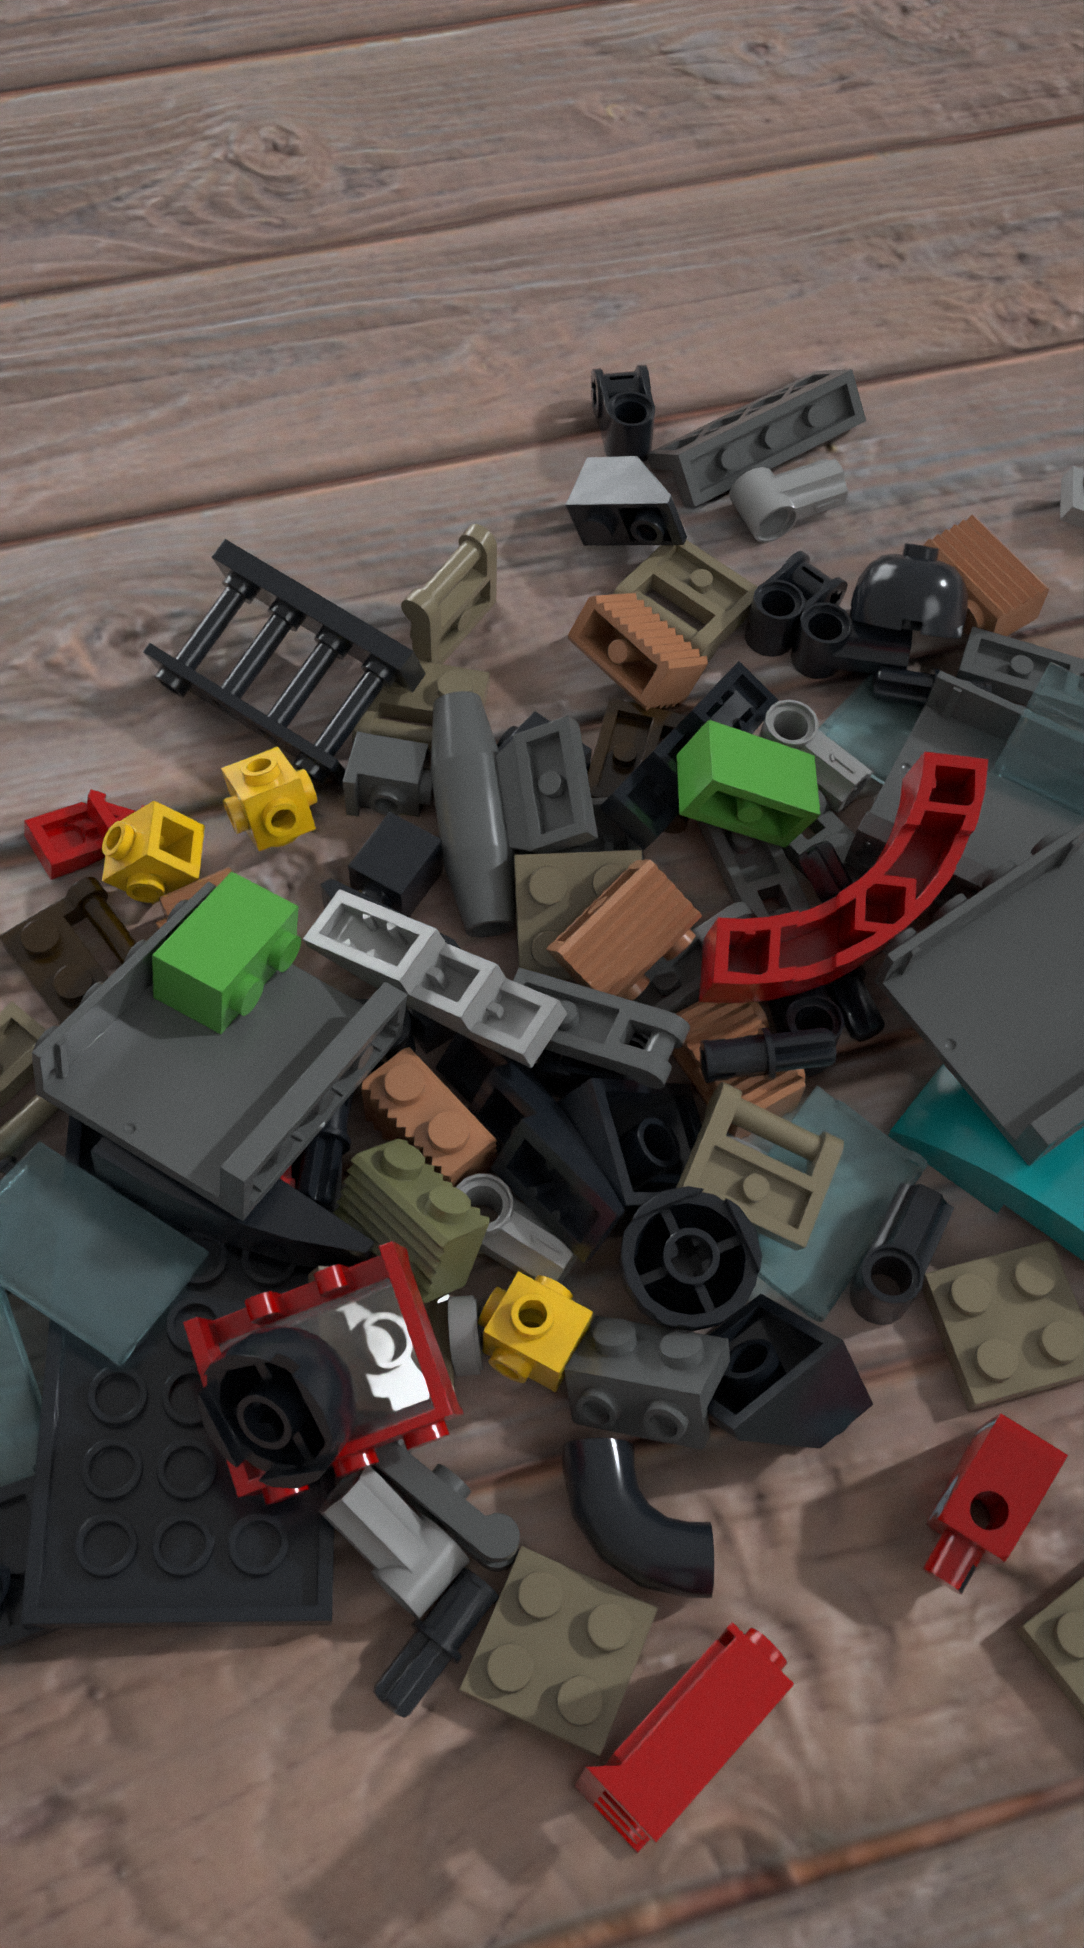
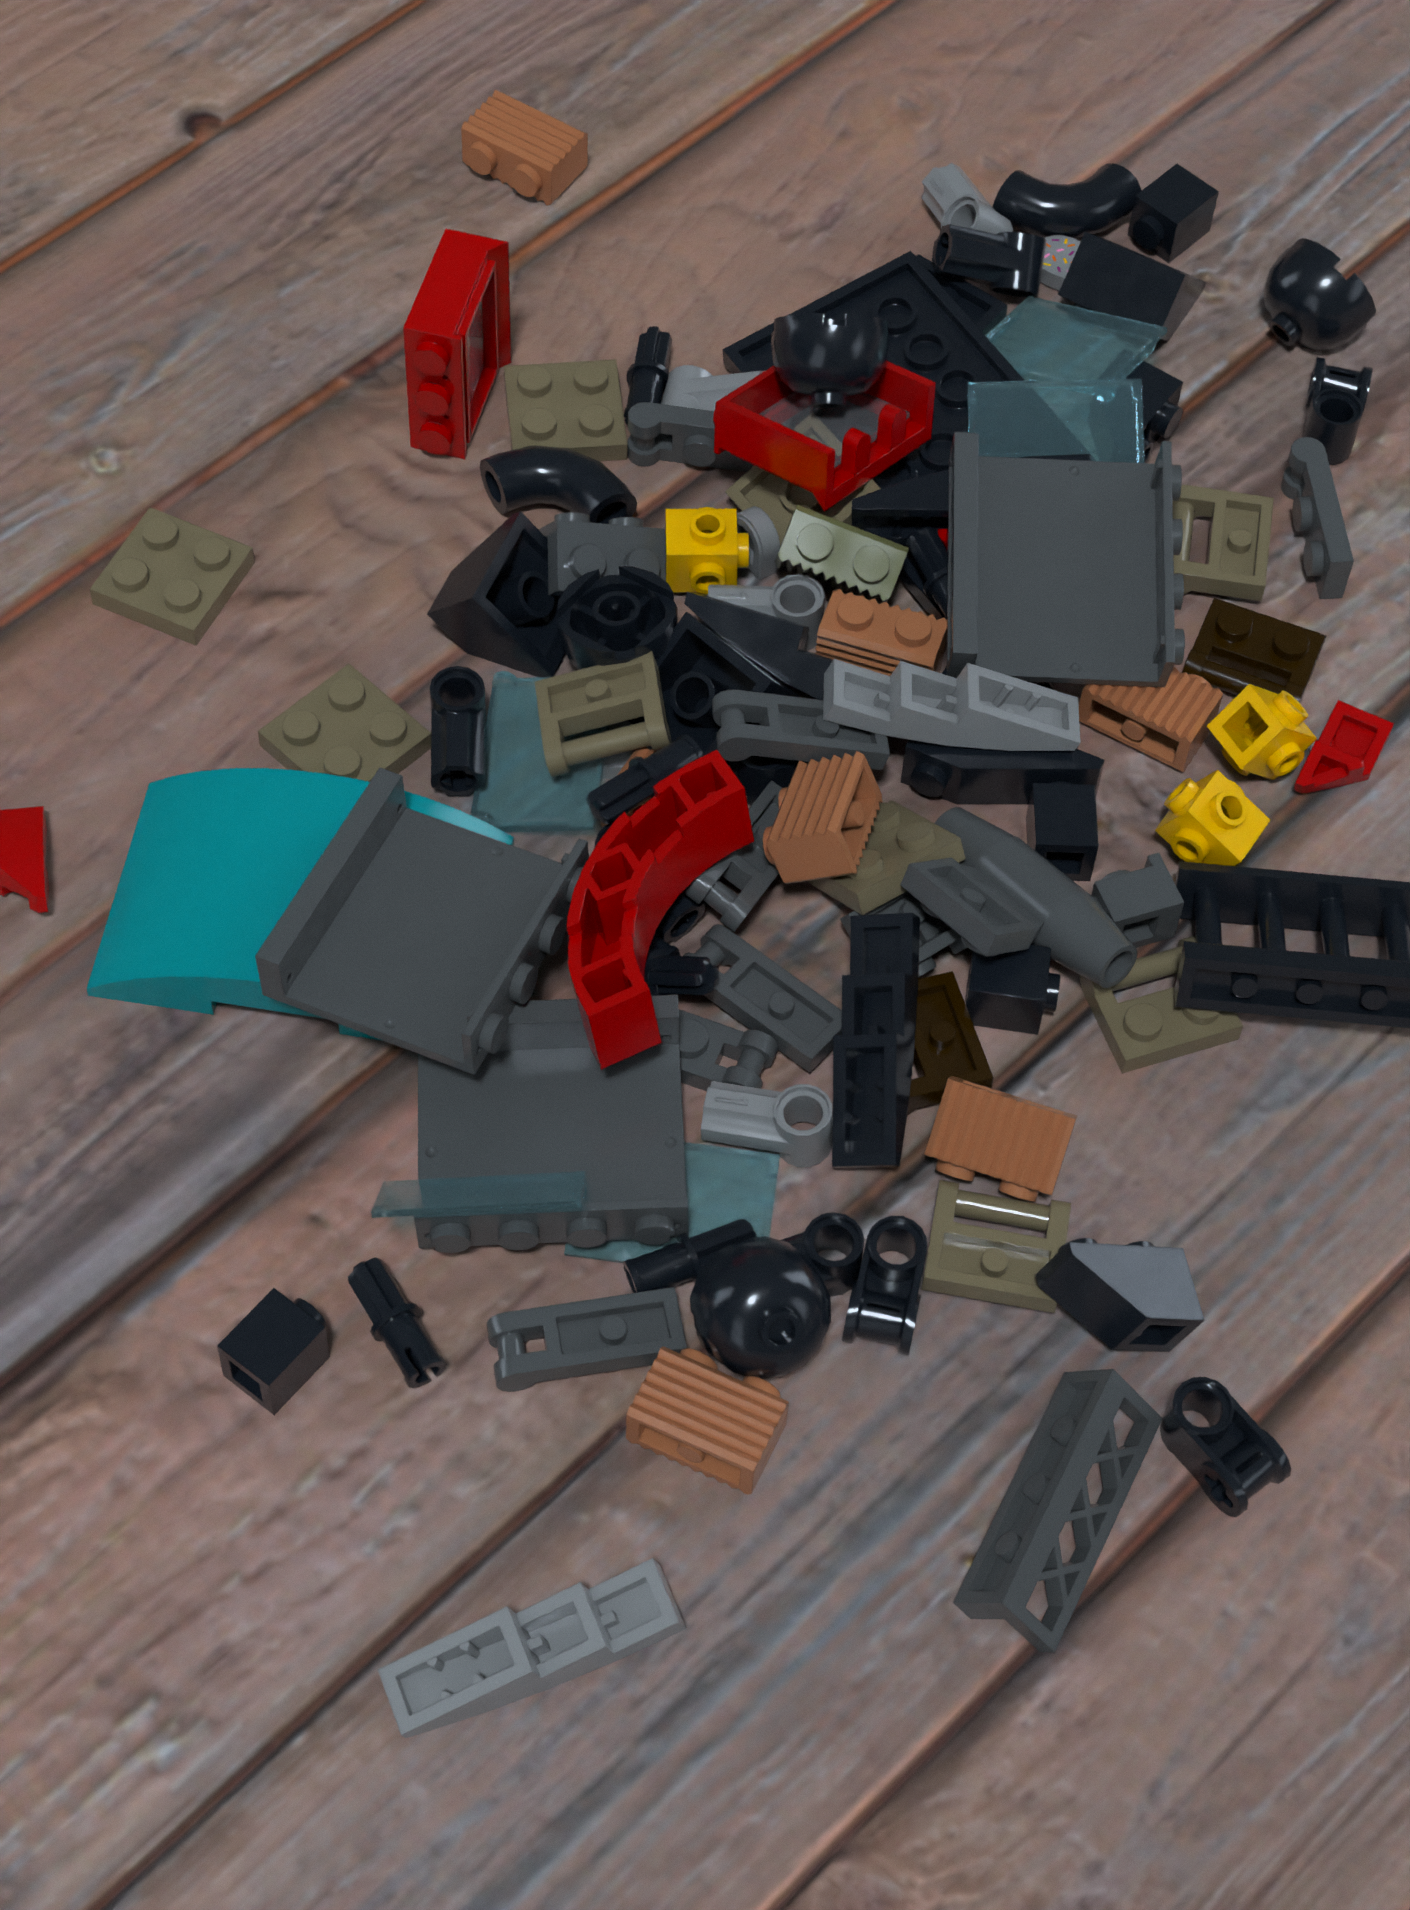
camera: 150 degrees right, 5 degrees down
(226, 953) = (1114, 625): bright green brick -> none
(454, 597) = (1207, 1082): dark tan plate -> none
(747, 784) = (802, 993): bright green brick -> none
(775, 502) = (980, 1413): light grey piece -> none
(1006, 1473) = (310, 571): red torso -> none

